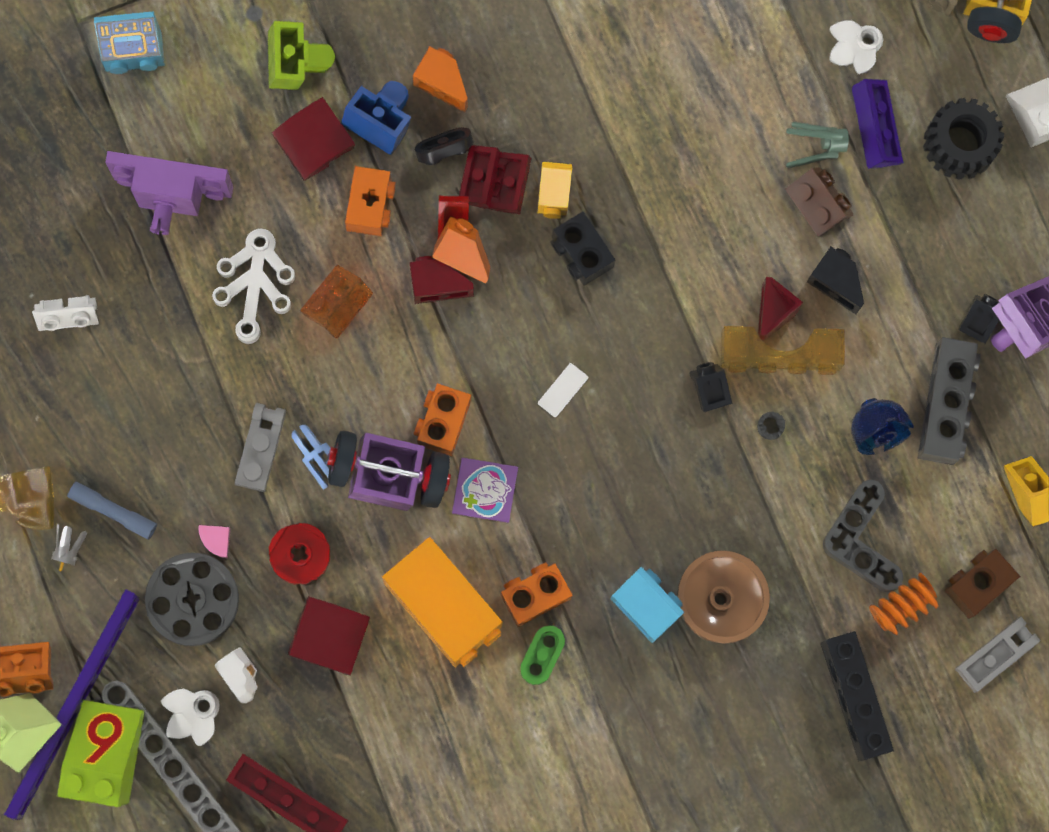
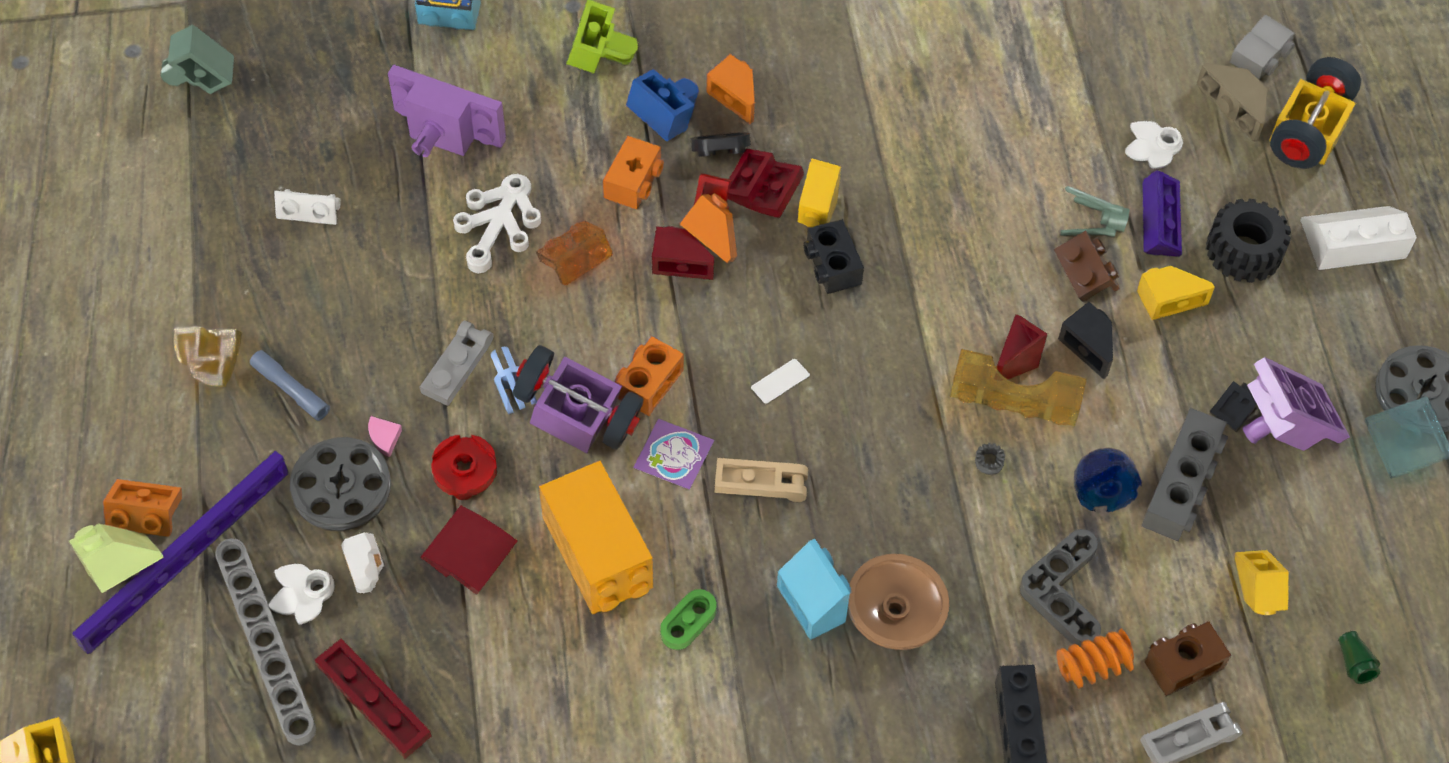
camera: 20 degrees right, 20 degrees down
(62, 550) = (233, 405): flat silver piece -> none
(102, 754) = (194, 604): lime slope -> none
(313, 138) = (595, 112): dark red slope -> none
(539, 601) = (701, 566): orange brick -> none
(570, 500) = (761, 479): none -> tan plate
(711, 386) = (935, 406): black bracket -> none
(901, 210) = (1172, 291): none -> yellow slope

